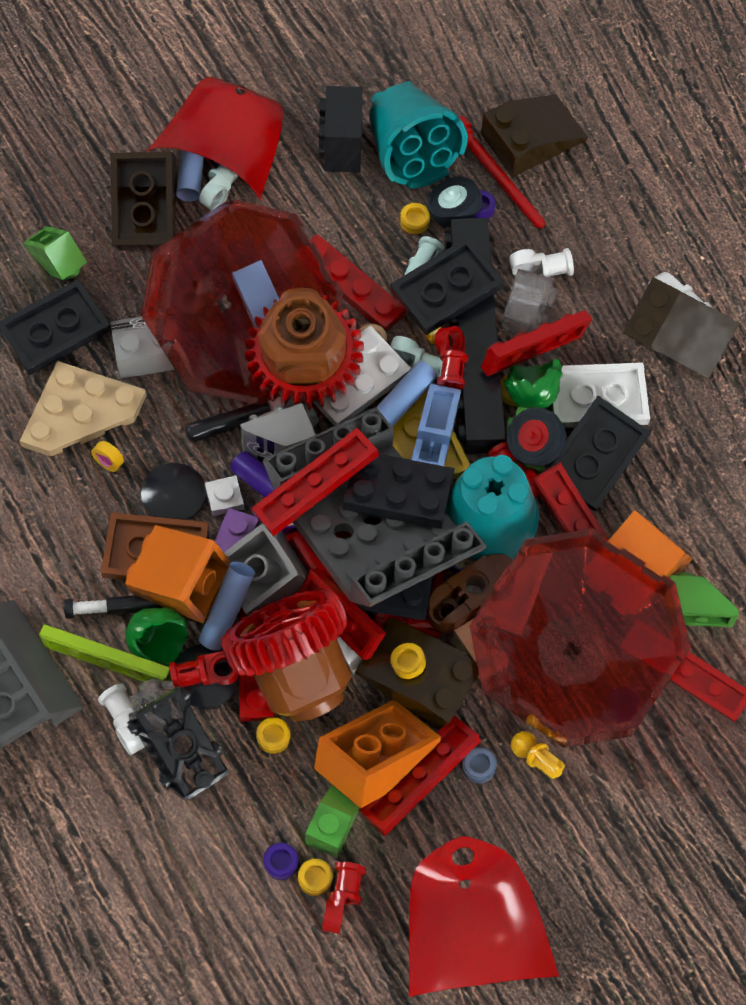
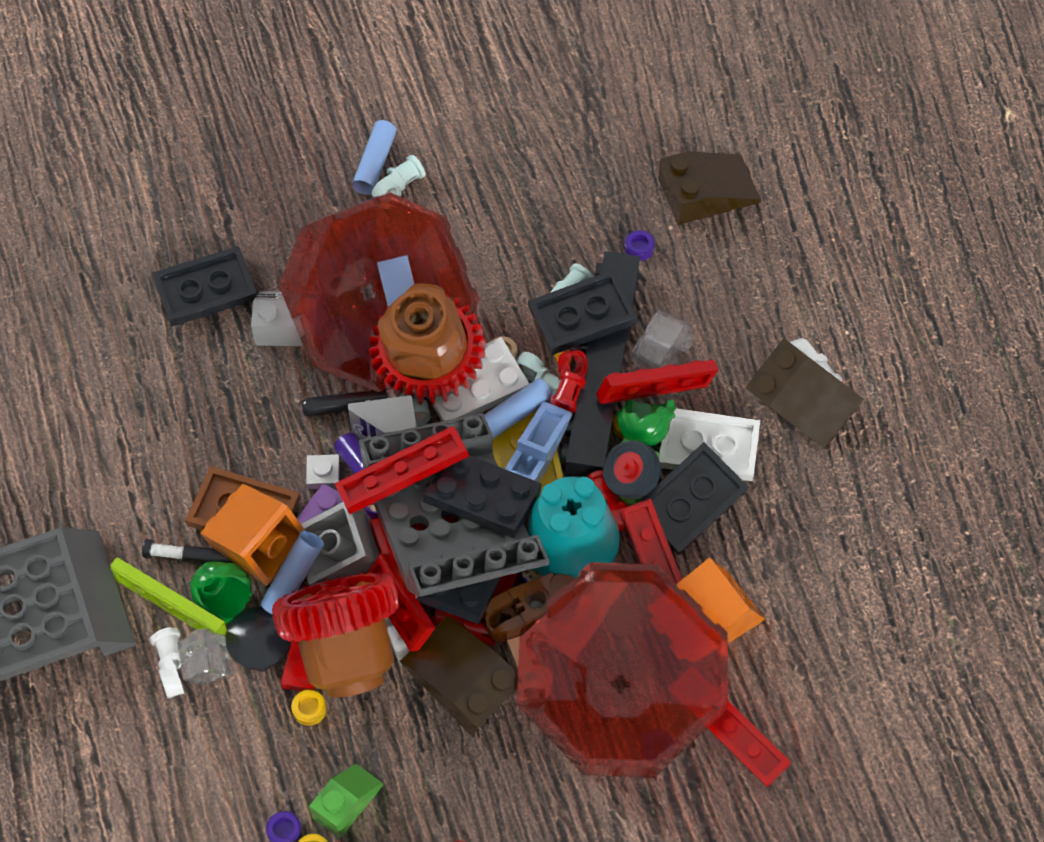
camera: 15 degrees right, 5 degrees down
(56, 252) = (225, 219): bright green slope -> none
(79, 409) = (208, 366): tan plate -> none
(107, 456) = (222, 413): yellow tile -> none
(143, 198) = (319, 179): dark brown slope -> none
(162, 747) = (193, 692): black piece -> none
(173, 491) = (276, 458): black dish -> none
(200, 671) = (249, 630): red connector -> none
(228, 129) = (416, 135): red piece -> none
(341, 128) = (521, 150): black brick -> none
(360, 289) = (499, 298): red plate -> none
(374, 752) = (398, 742): orange slope -> none
(408, 660) = (451, 659): yellow tile -> none
(415, 135) = (589, 169): teal cone -> none
(415, 218) = (573, 246): yellow tile -> none
(454, 200) = (614, 234): black wheel -> none
(455, 744) = (438, 774): red plate -> none
(479, 765) = (501, 777): sand blue tile -> none
(501, 177) = (638, 172): red piece -> none
(526, 746) = (559, 778): yellow axle -> none
(543, 264) = (683, 309): white connector -> none
(703, 602) = (757, 662): bright green slope -> none

